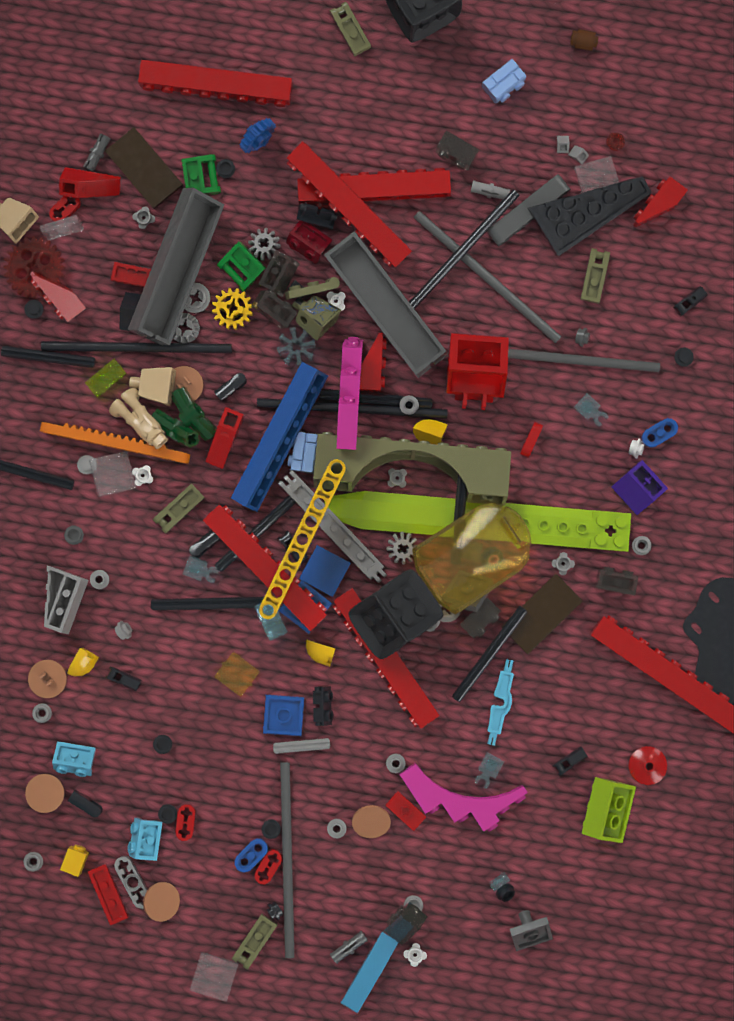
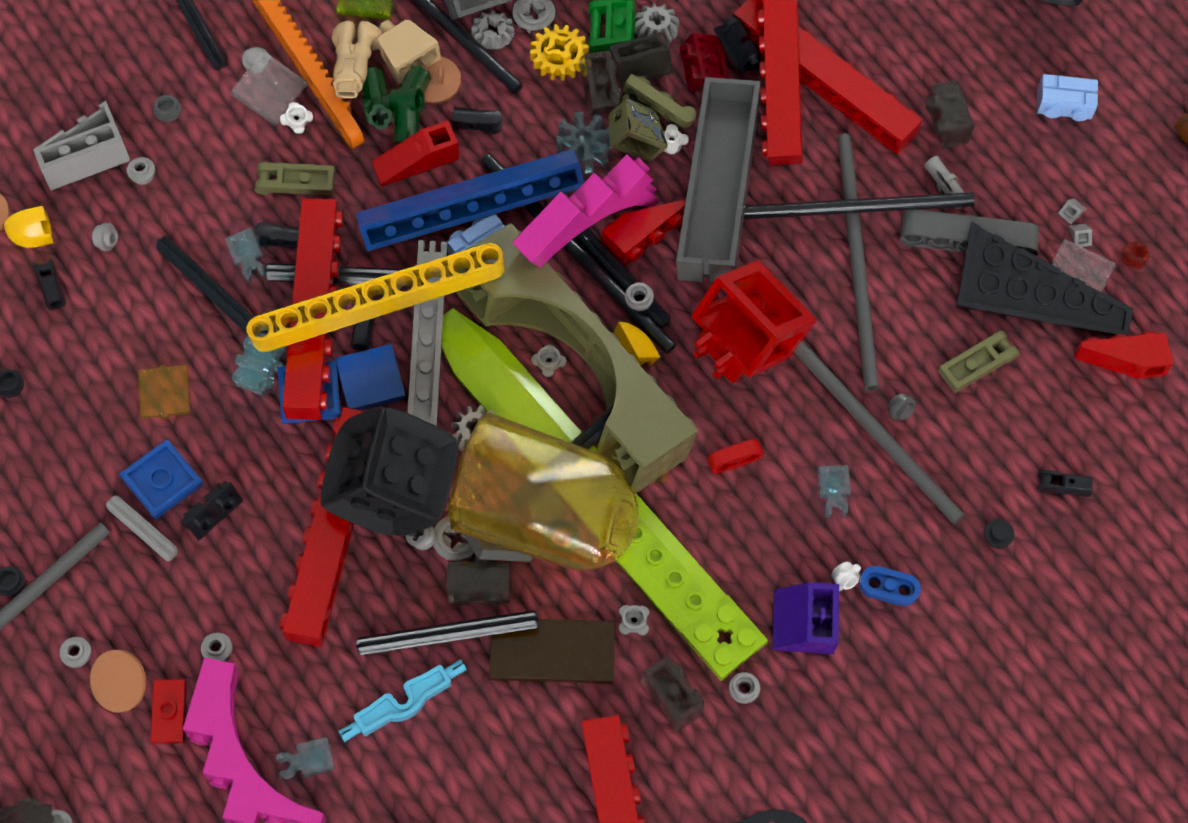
camera: 40 degrees right, 20 degrees down
(320, 653) = (272, 455): yellow brick -> none

